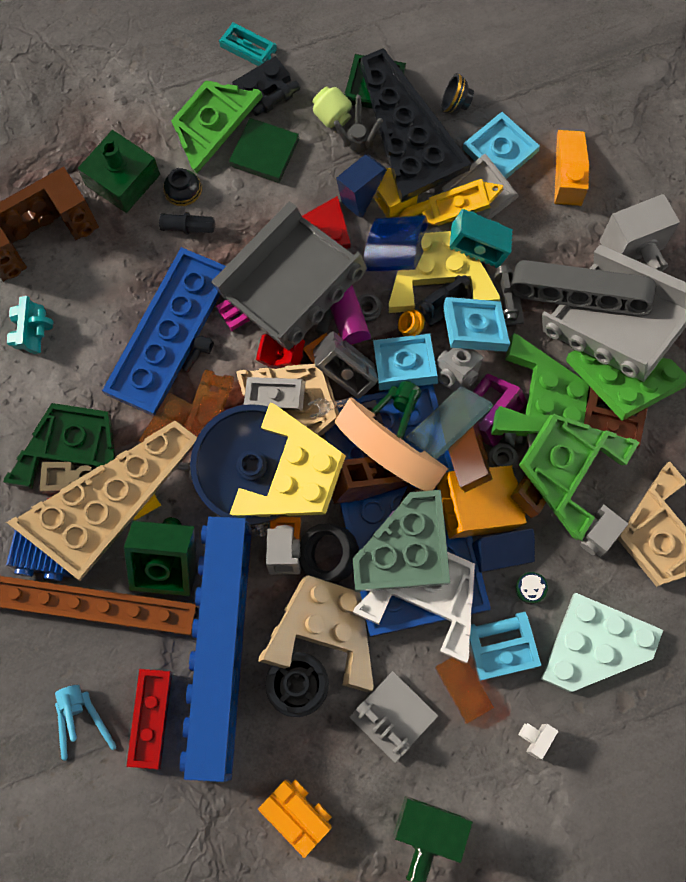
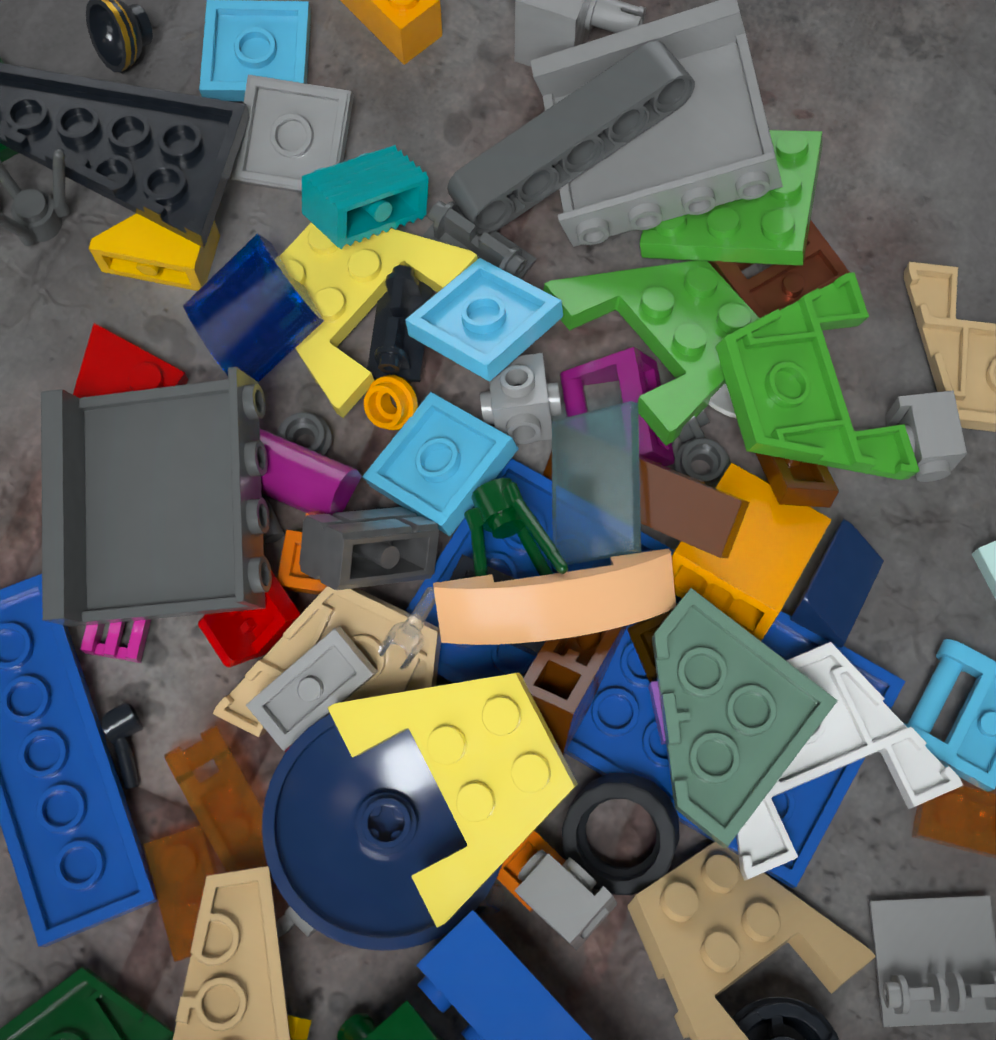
camera: 50 degrees left, 0 degrees up
(359, 184) = (116, 274): dark blue slope -> none
(446, 206) = (275, 181): yellow plate -> none
(531, 588) = (918, 599): tile -> none

